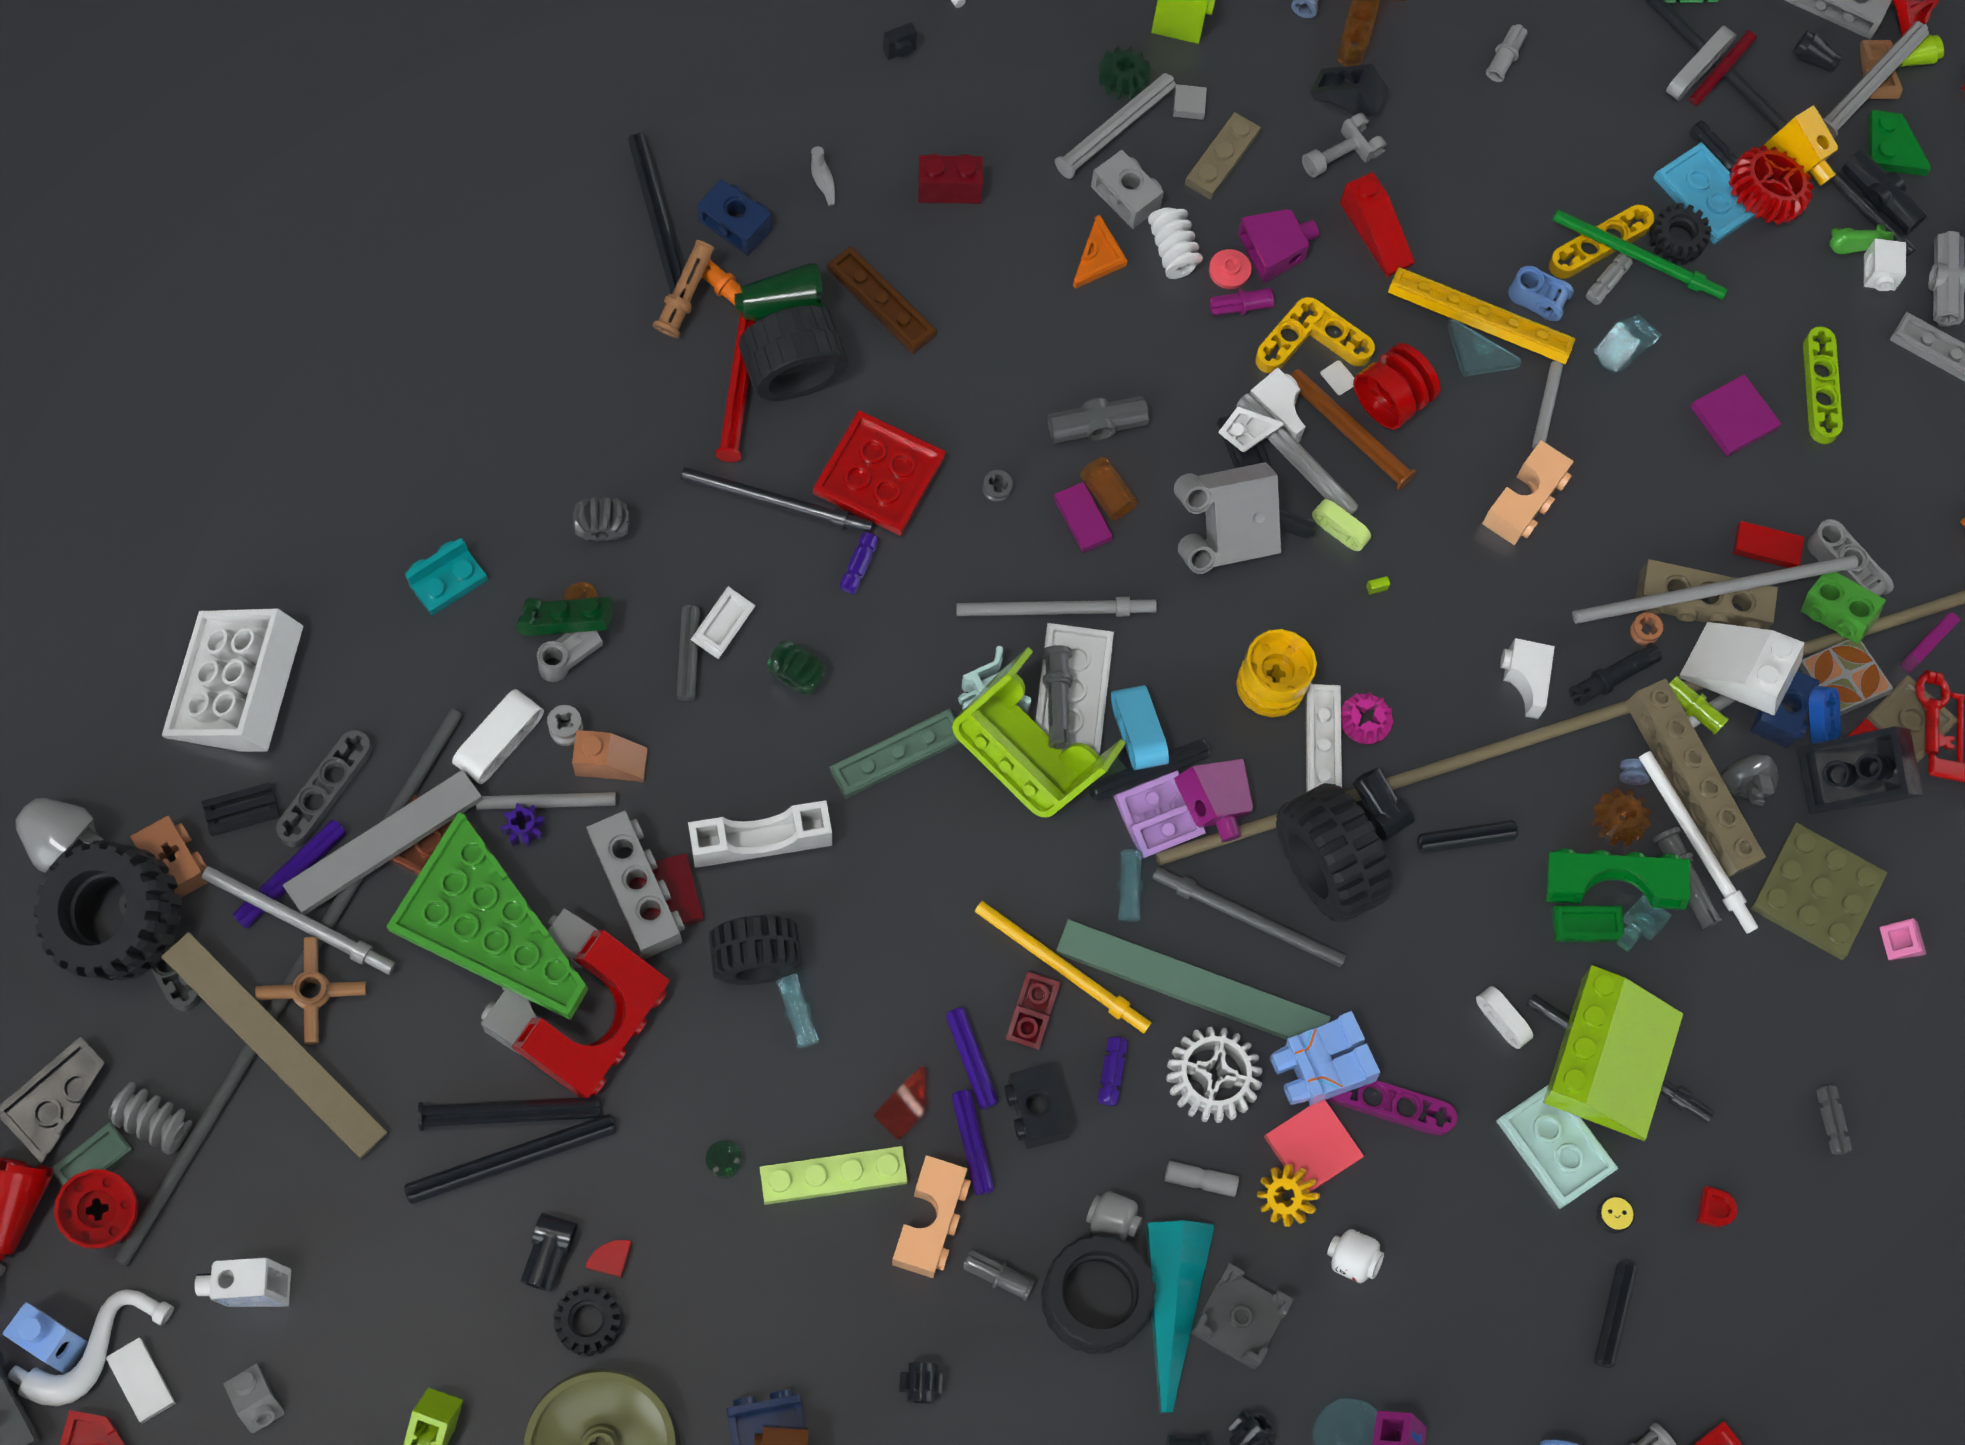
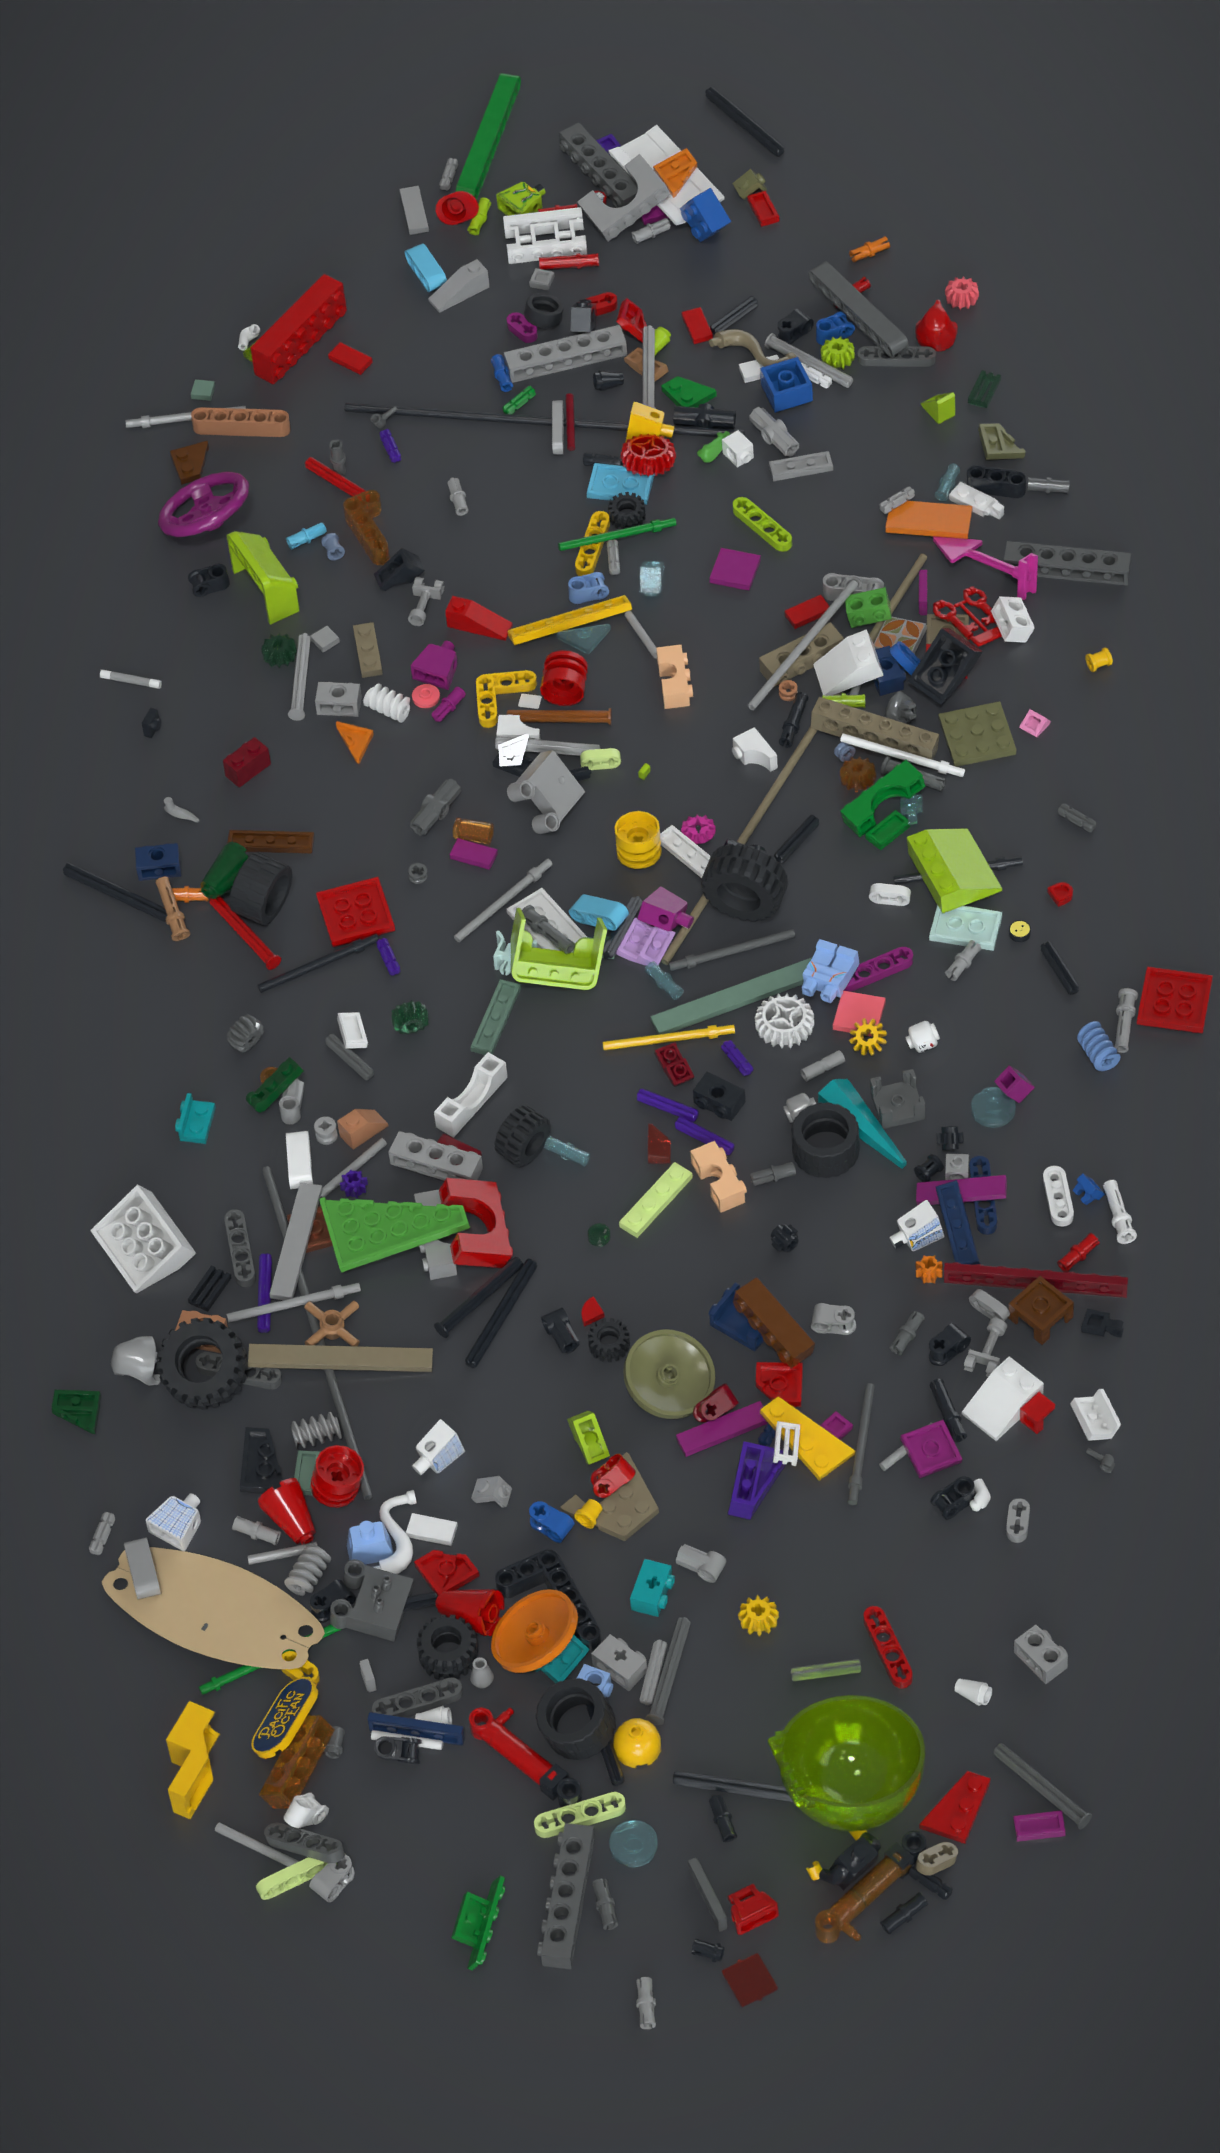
camera: 30 degrees left, 15 degrees down
(1506, 1192) = (963, 960): none -> light grey pin

